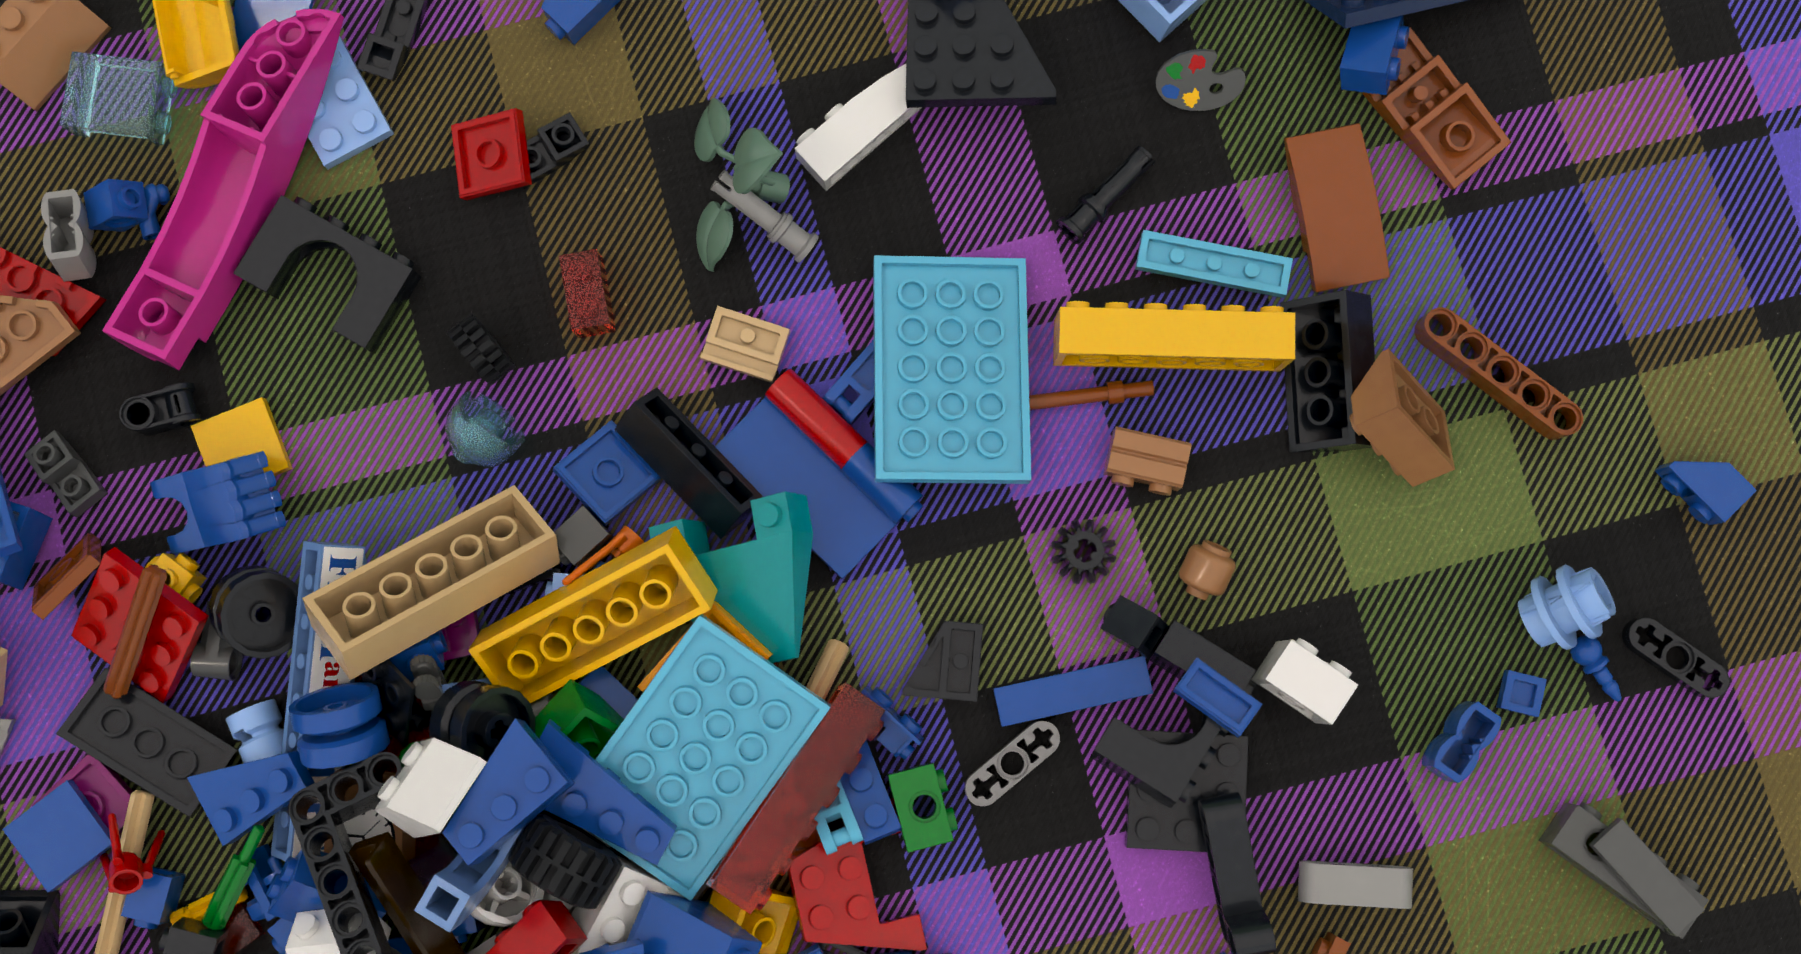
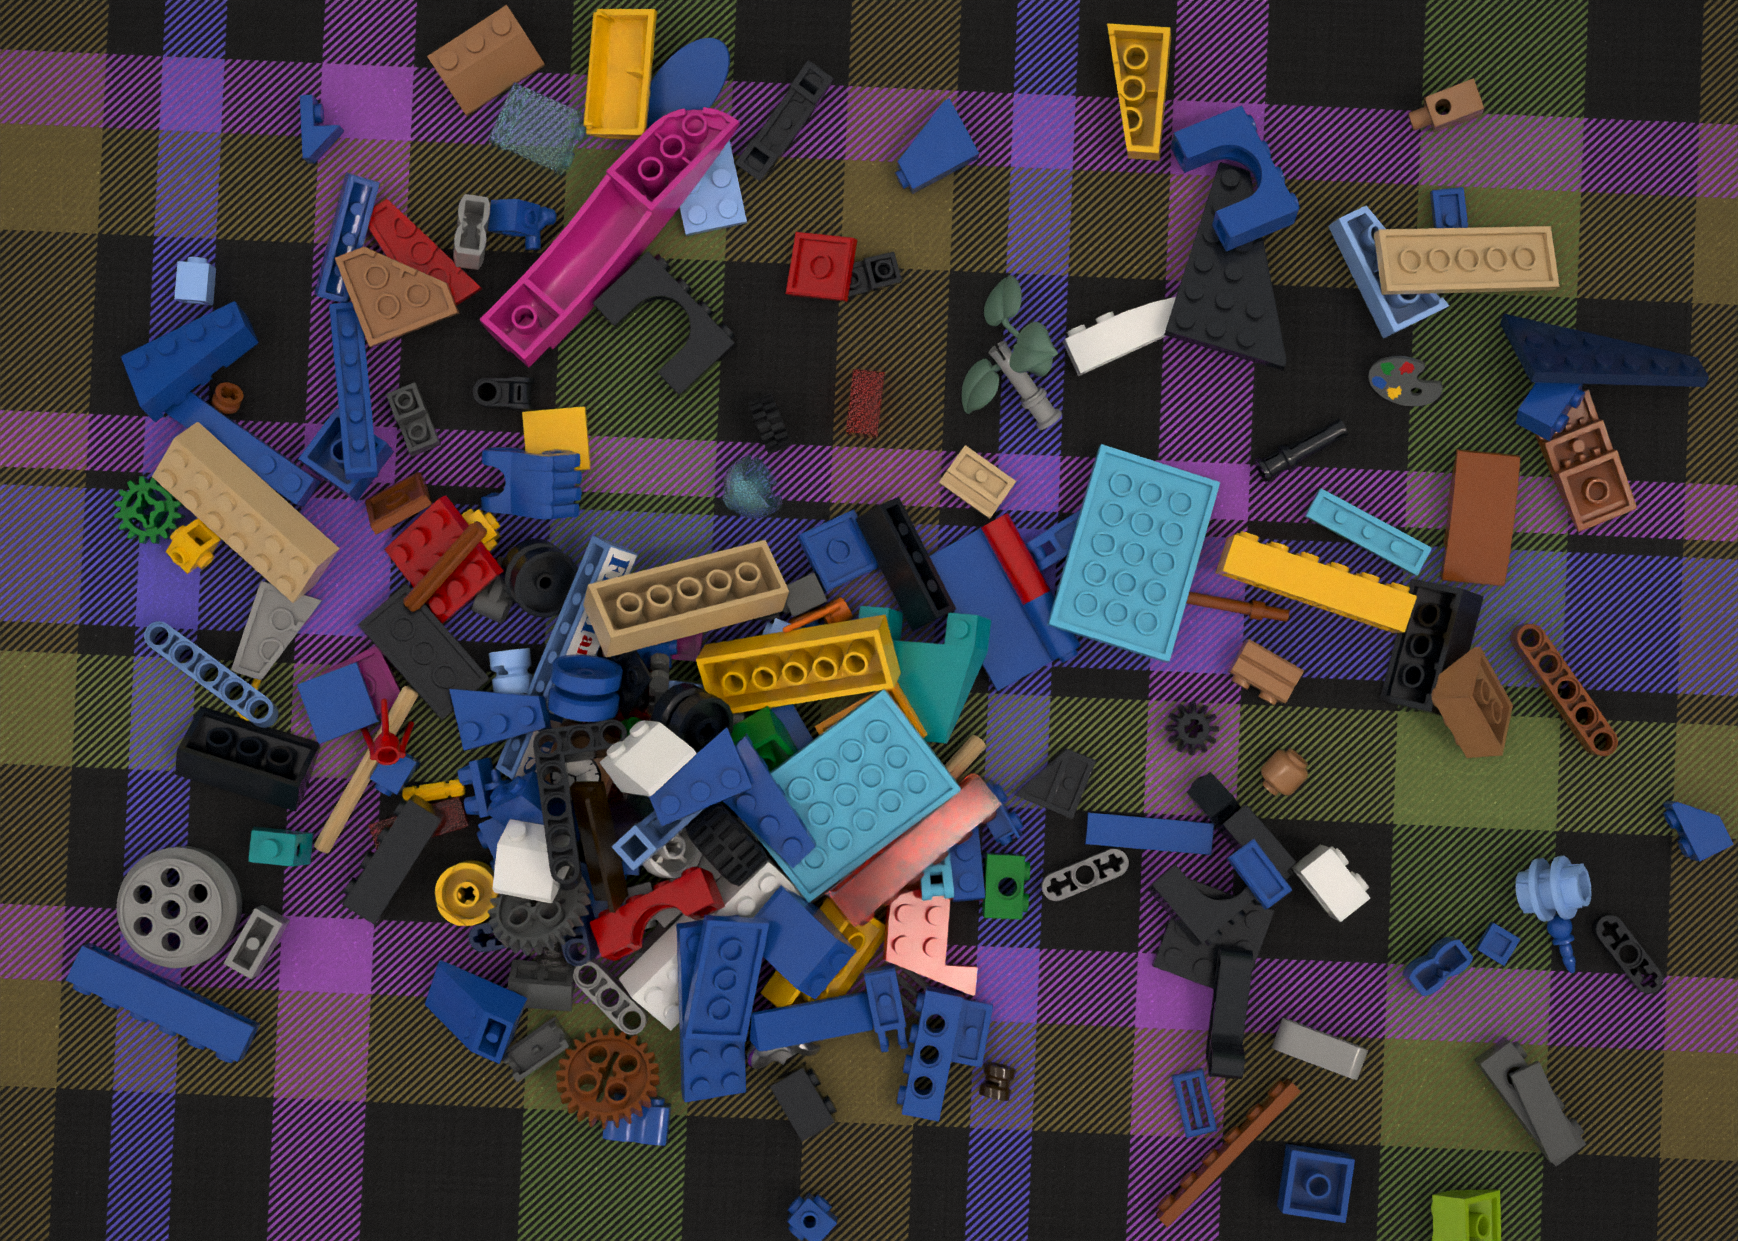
camera: 15 degrees right, 5 degrees up
(232, 883) = (462, 780): green axle -> none

